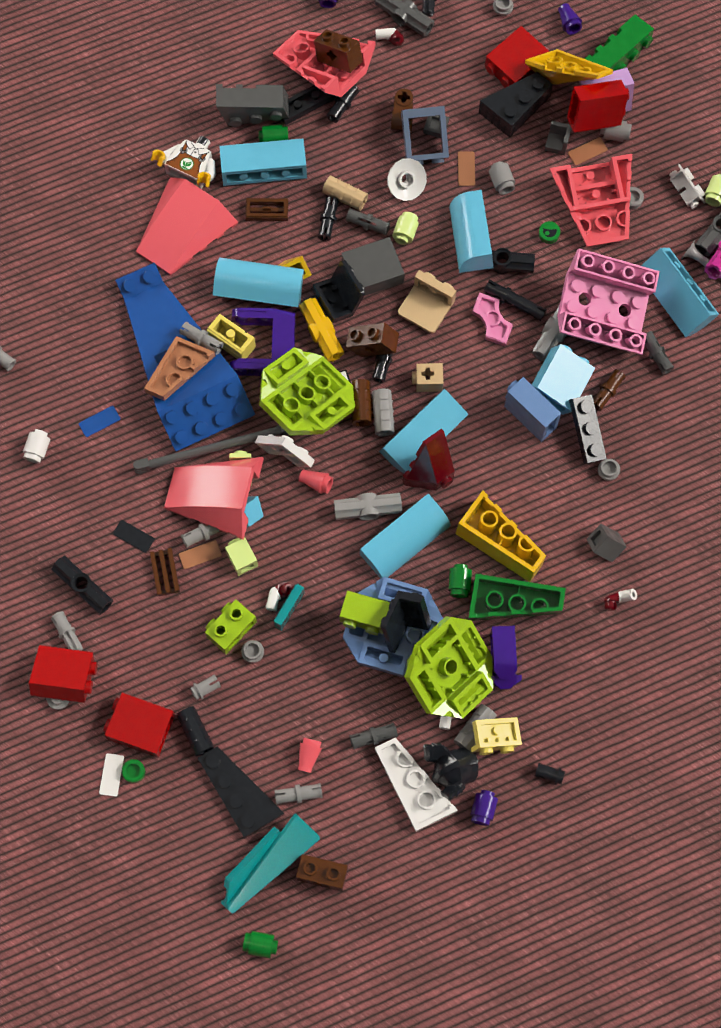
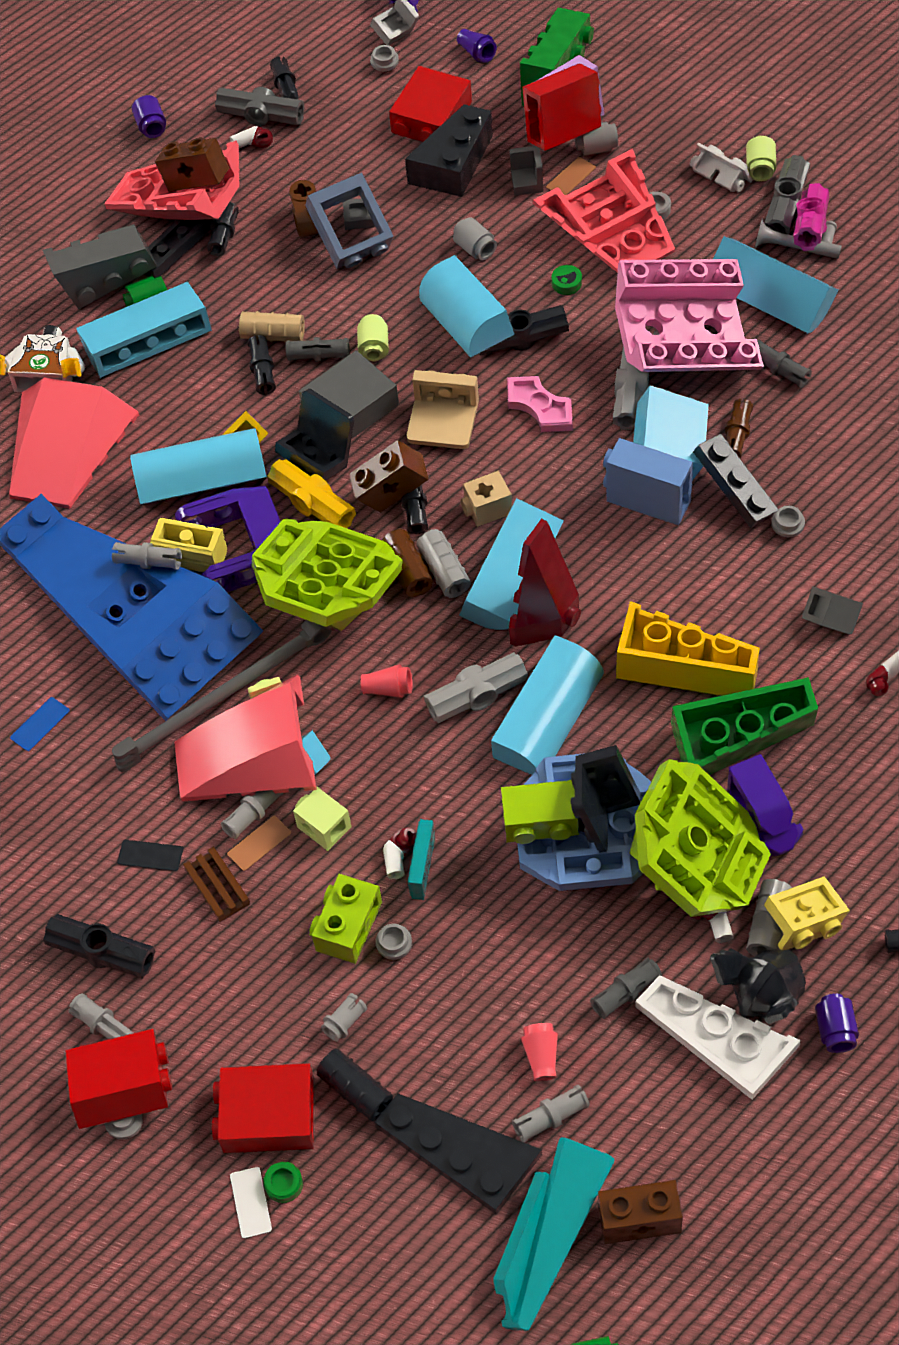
camera: 15 degrees left, 15 degrees down
(177, 367) = (127, 601): nougat wing -> none
(266, 213) = (173, 387): reddish brown tile -> none
(285, 446) = (327, 649): white plate -> none
(414, 182) = (357, 277): white dish -> none
(460, 581) = (653, 734): green brick -> none
(466, 168) = (421, 248): nougat sticker -> none
(515, 300) = (559, 369): black pin -> none
(564, 67) = (501, 86): yellow wedge -> none

